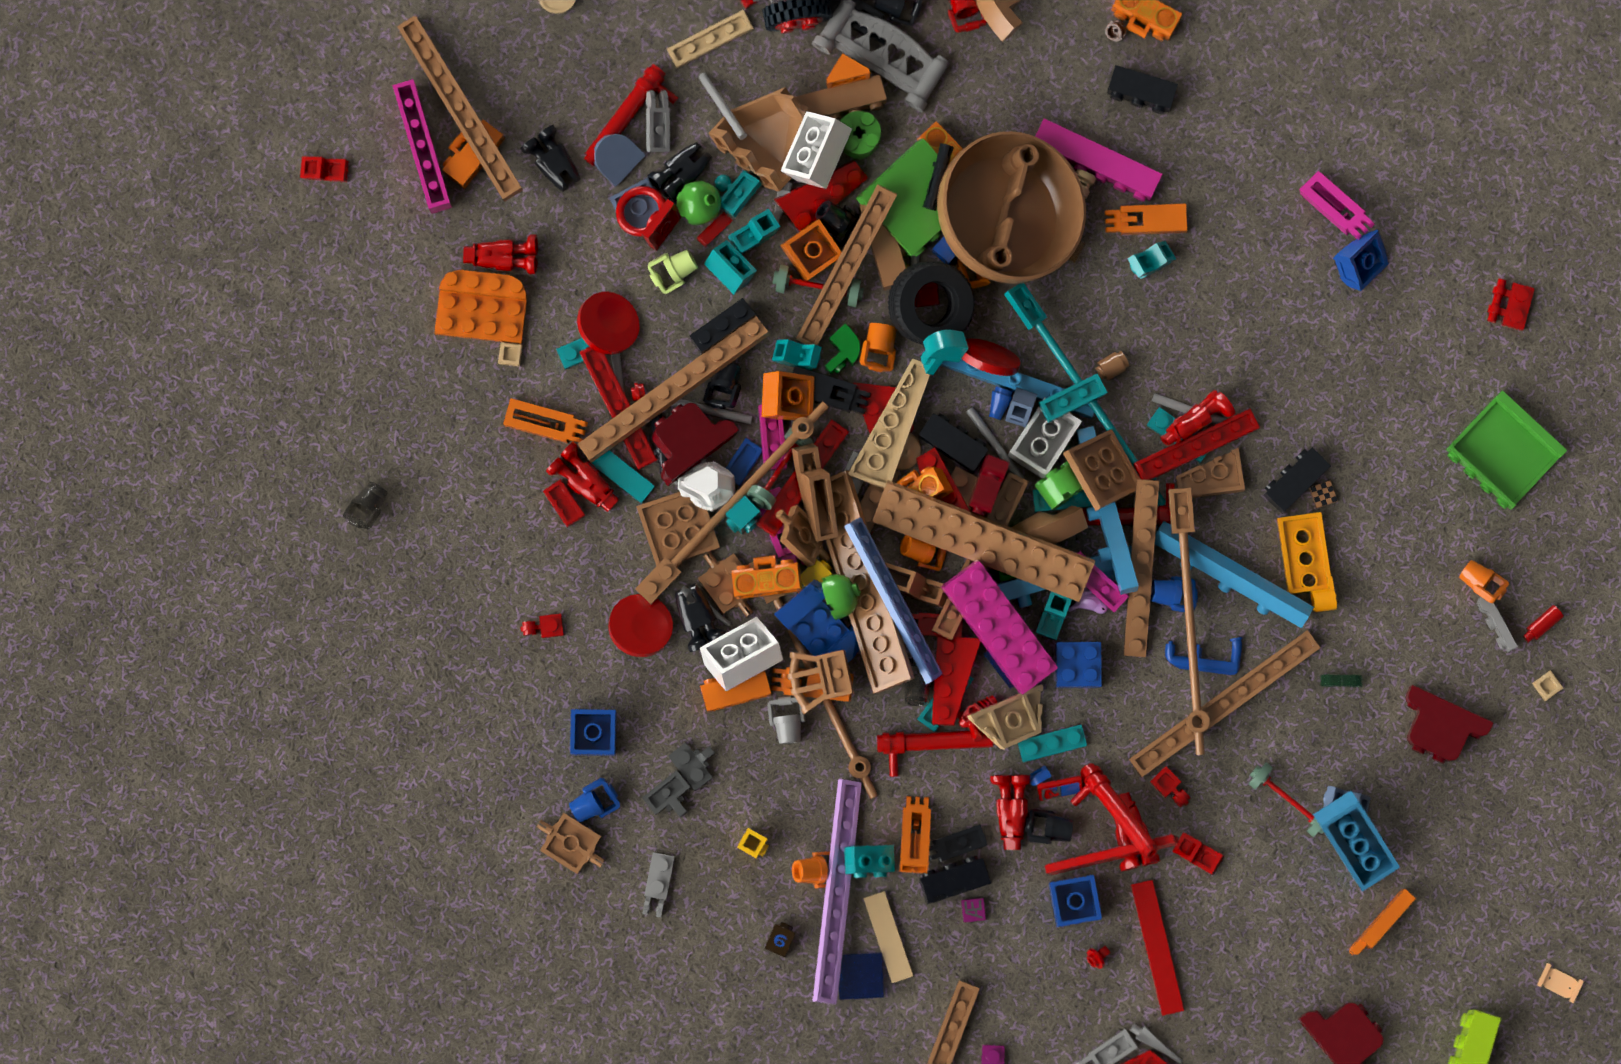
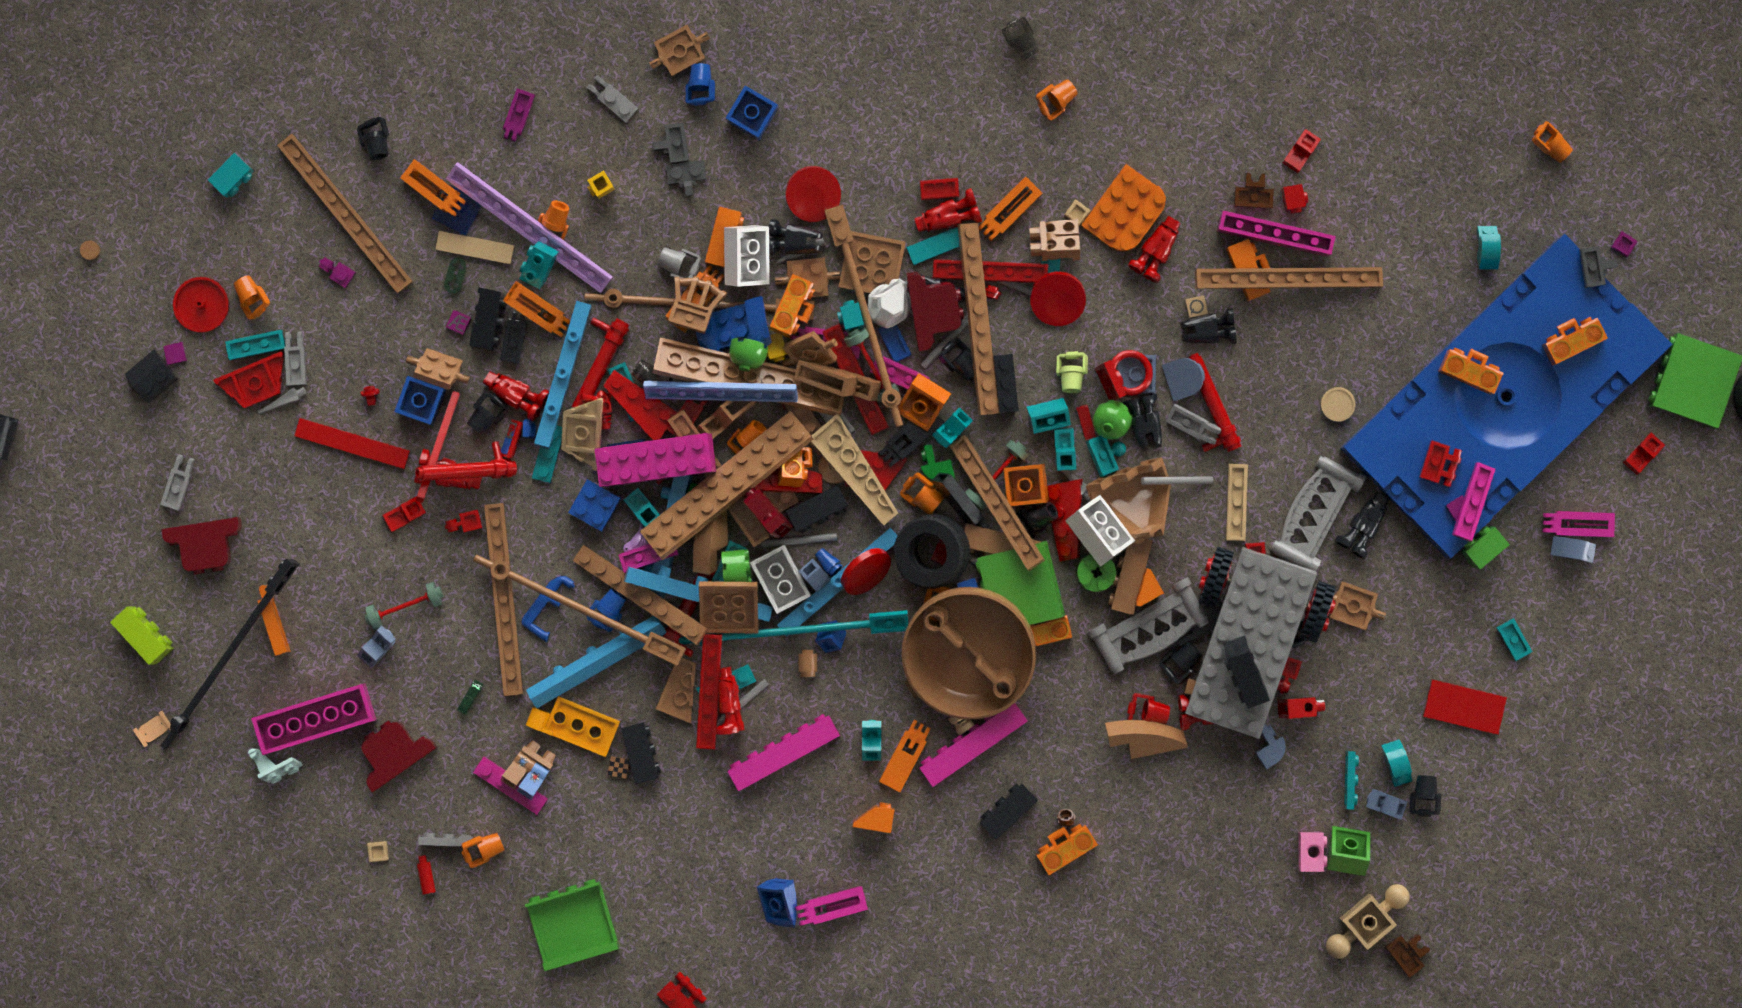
camera: 120 degrees right, 5 degrees up
(376, 148) = (1294, 198): none -> red brick
(394, 191) = (1254, 194): none -> reddish brown plate
(404, 435) = (1058, 95): none -> orange piece
(538, 185) = (1196, 306): none -> tan tile
(549, 625) = (852, 126): red plate -> none
(550, 356) = (1057, 239): none -> medium nougat hips
(727, 970) = (518, 114): none -> magenta hinge
(780, 939) = (518, 166): dark brown brick -> none
(852, 1018) = (430, 186): none -> orange hinge
(865, 306) = (959, 500): none -> black hinge
(929, 945) = (451, 274): none -> clear green beam
(939, 168) = (1031, 616): black pin -> none
(943, 346) = (891, 538): teal brick -> none
(966, 772) = (563, 375): none -> dark azure piece
(1033, 901) = (438, 369): none -> medium nougat plate
(1072, 398) = (797, 616): teal plate -> none
(1076, 354) = (831, 640): none -> blue panel
(1213, 339) = (781, 754): none -> dark pink brick
(1225, 210) = (876, 818): none -> orange slope
(1346, 937) = (274, 587): none -> black bar
(1356, 840) = (342, 635): dark azure brick -> none
(1372, 576) = (531, 764): none -> medium nougat hips
(1404, 591) = (492, 774): none -> dark pink plate
(1455, 824) = (313, 719): none -> dark pink brick
(1532, 839) = (269, 771): none -> light aqua plate

